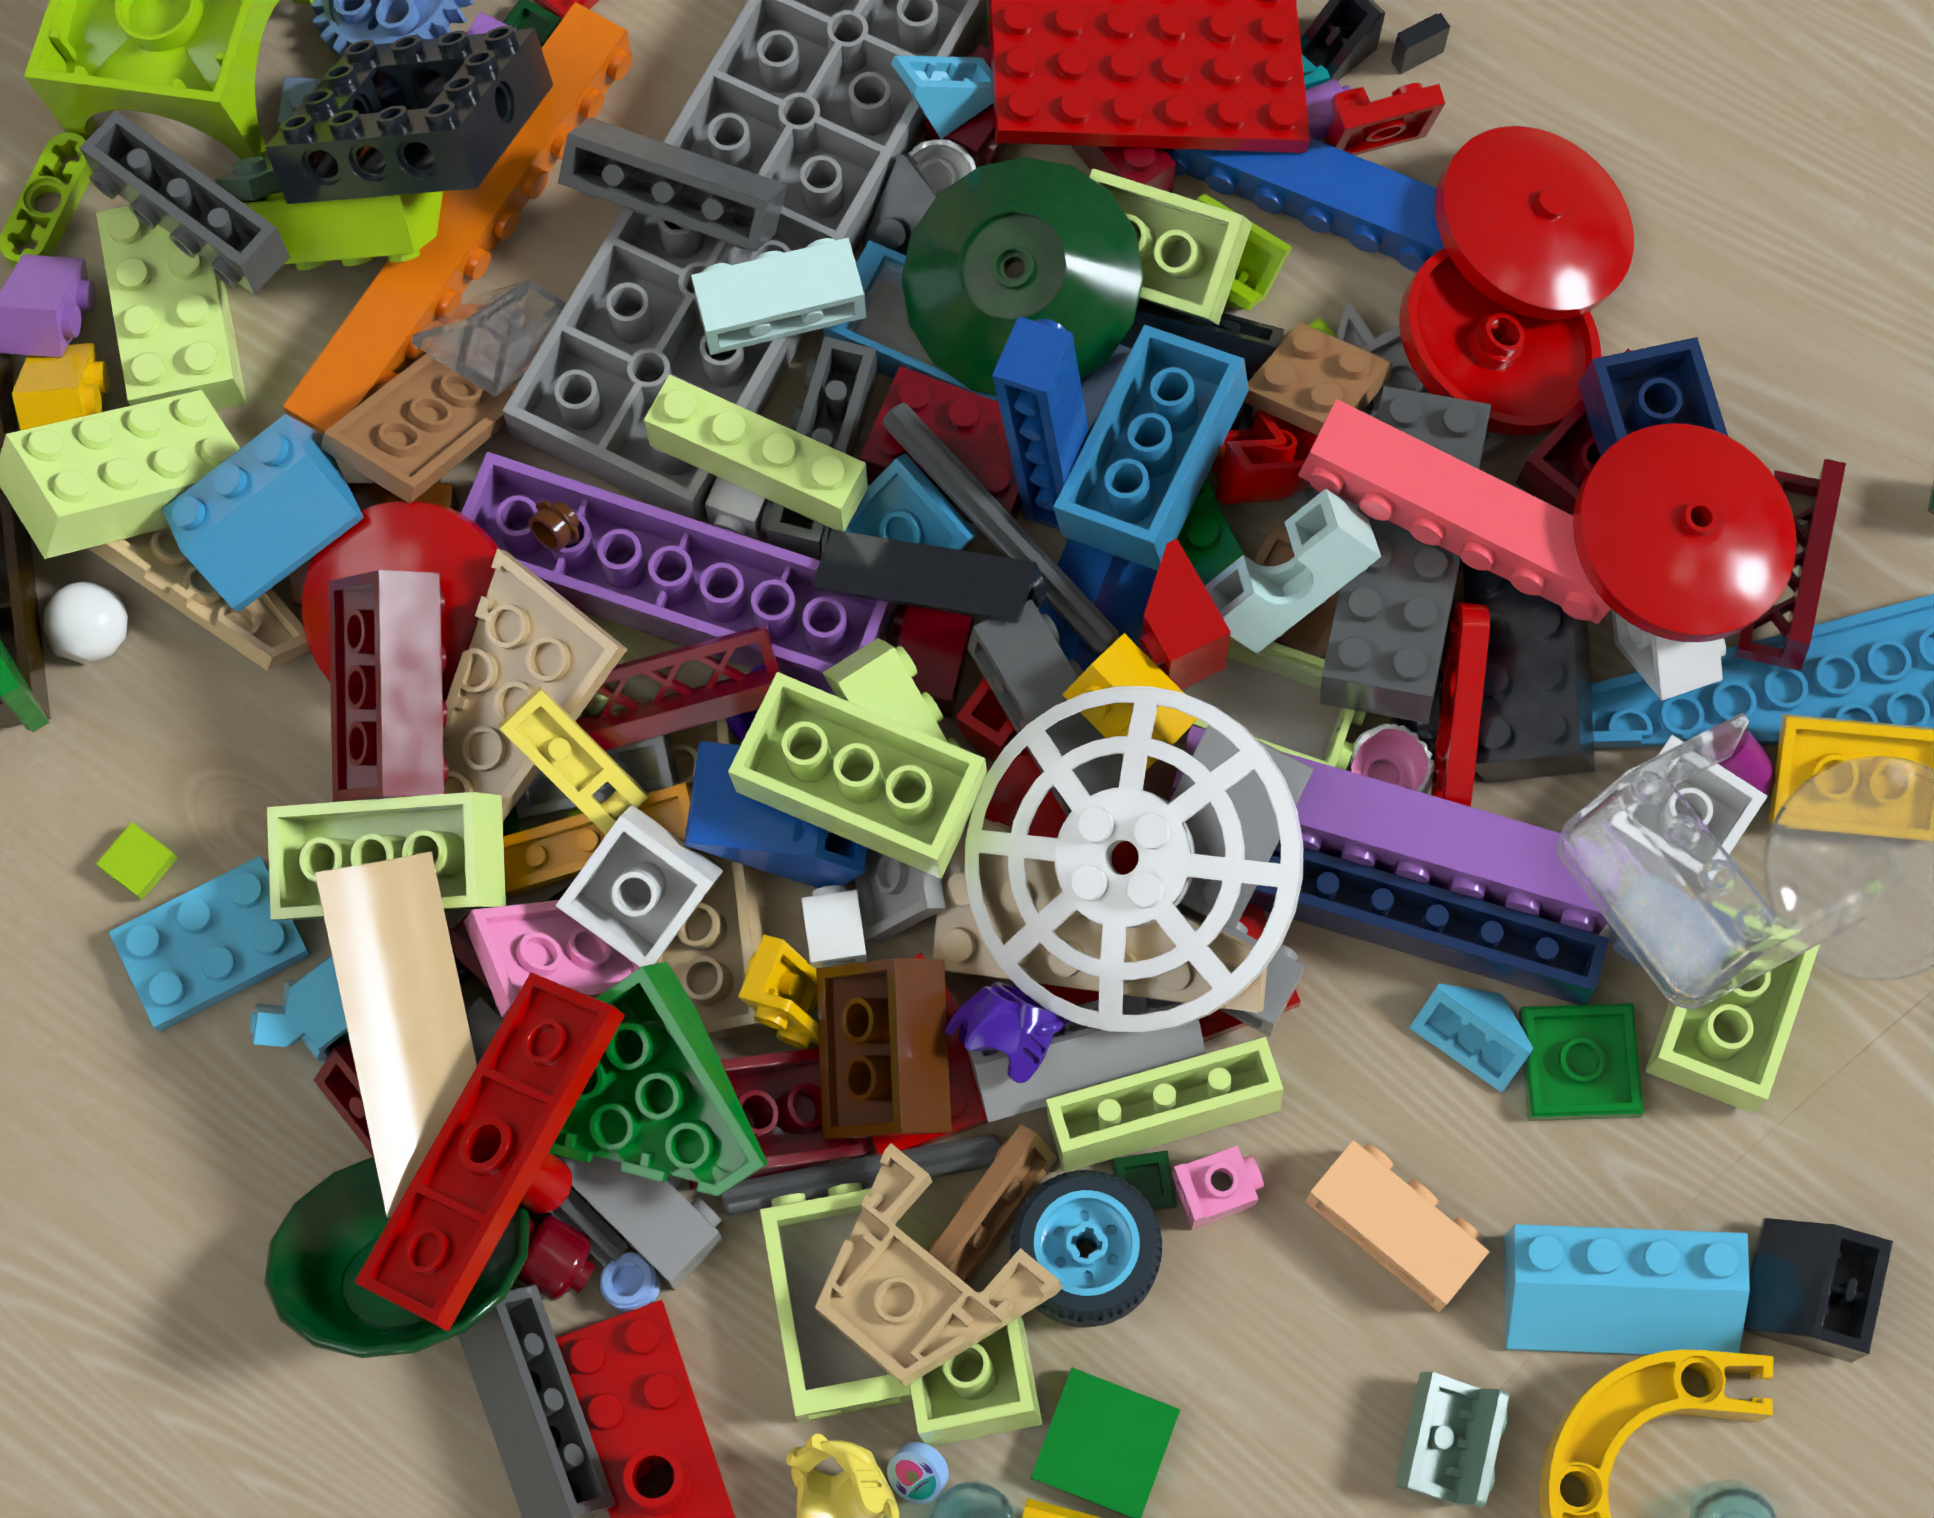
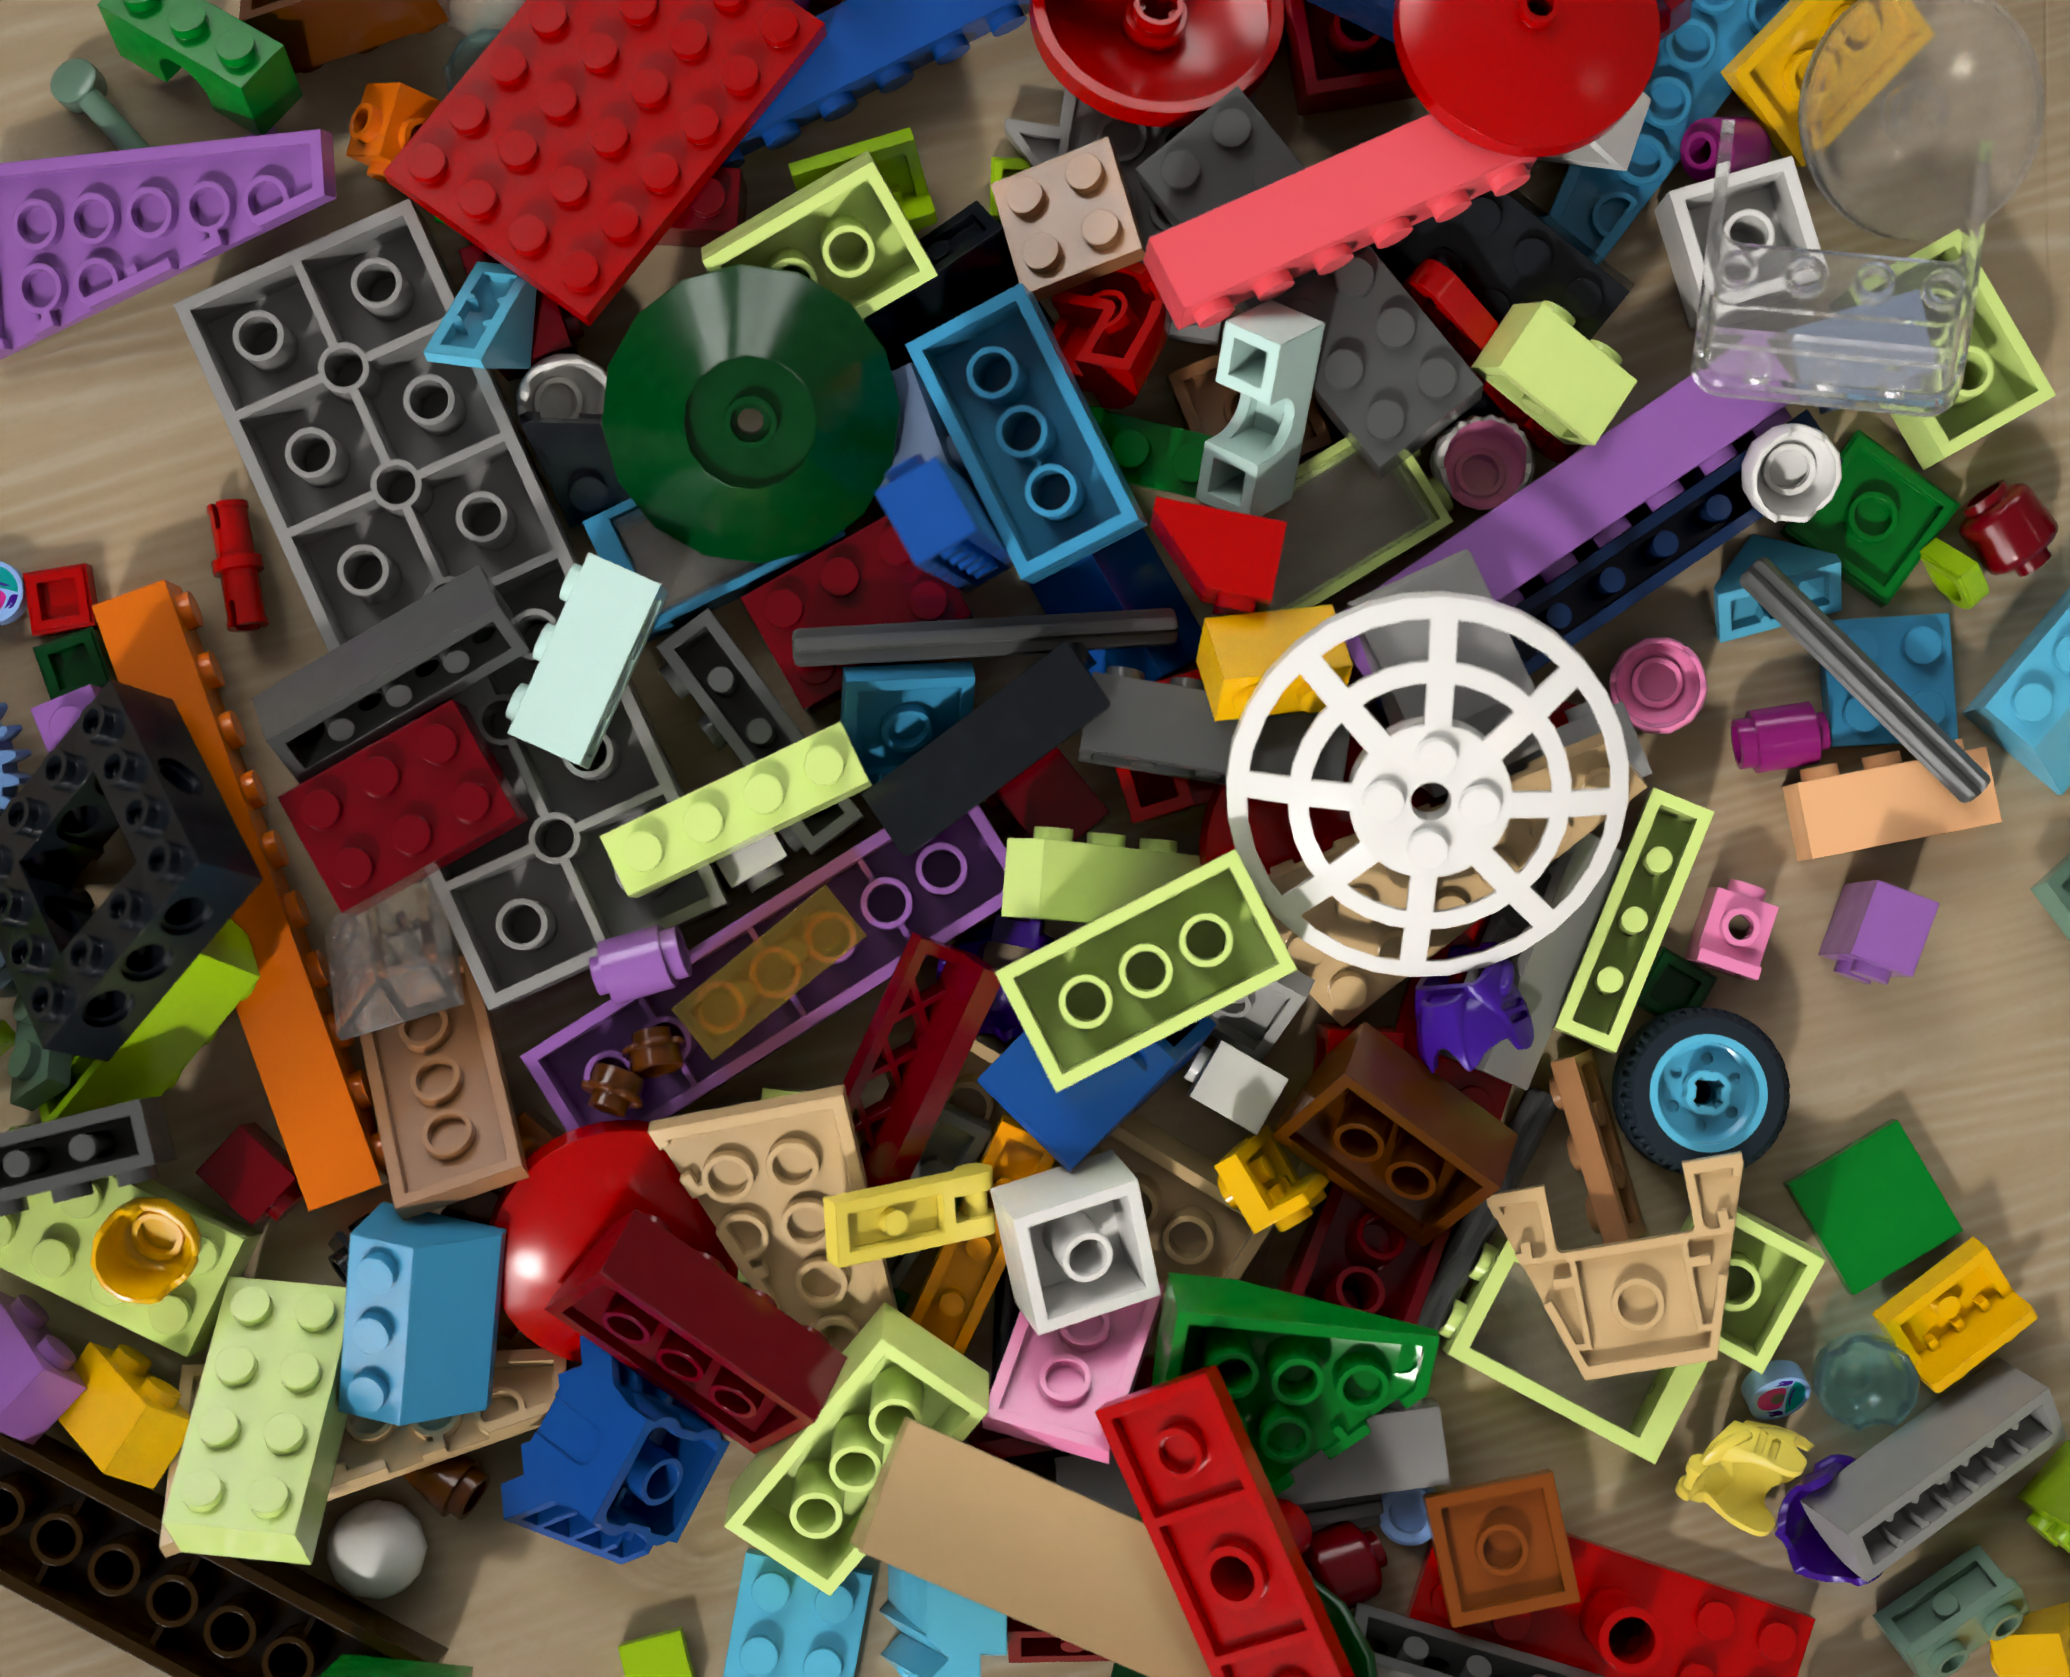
camera: 55 degrees left, 15 degrees up
(165, 633) = (451, 1485): none -> reddish brown cone
(180, 312) = (145, 1250): none -> yellow hair
(256, 717) = (612, 1463): none -> blue slope
(279, 360) = (253, 1175): none -> dark red brick
(509, 516) = (613, 1089): none -> reddish brown plate
(592, 256) = (403, 808): none -> dark red brick
(607, 472) = (640, 963): none -> medium lavender brick
(651, 1352) = (1501, 1548): none -> dark orange plate
(666, 555) = (769, 972): none -> clear yellow plate
(672, 72) = (237, 565): none -> red pin
(1297, 1276) = (1877, 931): none -> medium lavender brick
(1341, 1000) = (1659, 684): none -> bright pink hair
(1377, 1113) = (1780, 737): none -> magenta brick
(1461, 1128) = (1864, 680): none -> dark grey axle
(1480, 1160) = (1915, 656): none -> dark azure plate
(1483, 742) = (1555, 372): none -> yellowish green brick
(1553, 950) = (1791, 472): none -> white hair
(1591, 1144) = (1954, 574): none -> lime tile
(1654, 1155) = (2008, 528): none -> dark red head

